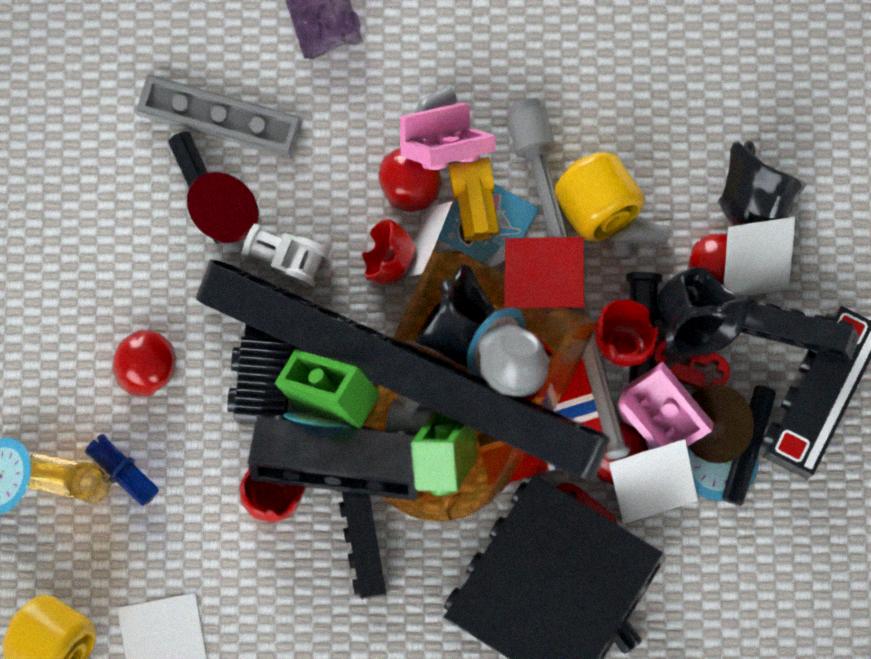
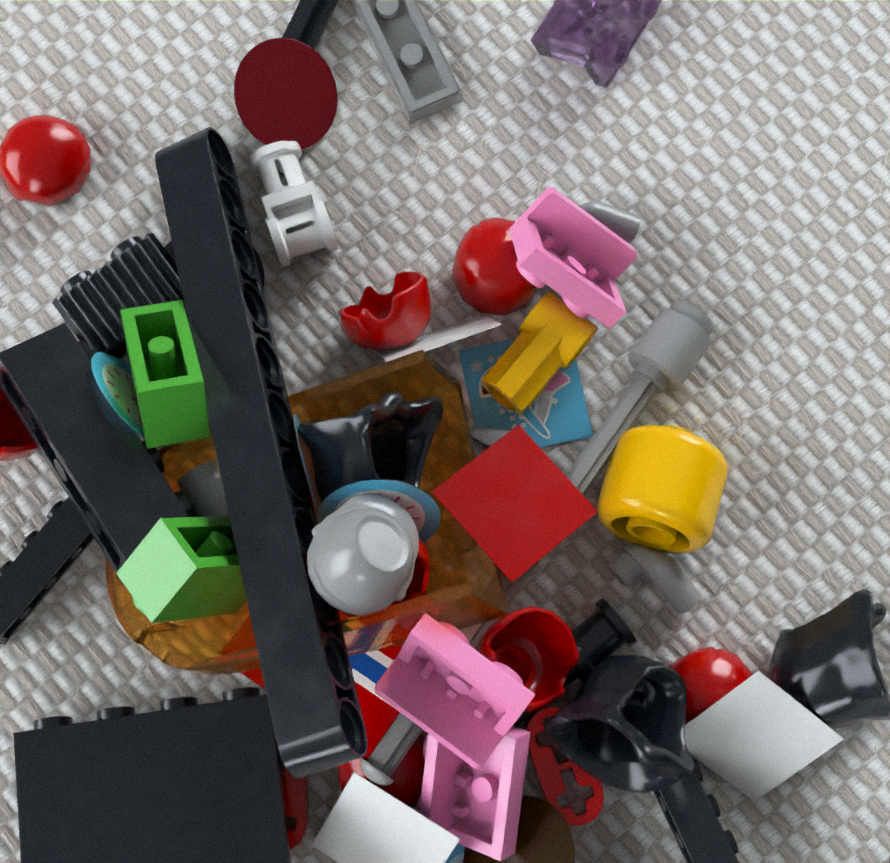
camera: 45 degrees right, 0 degrees up
(613, 377) = (453, 691): none -> bright pink bracket

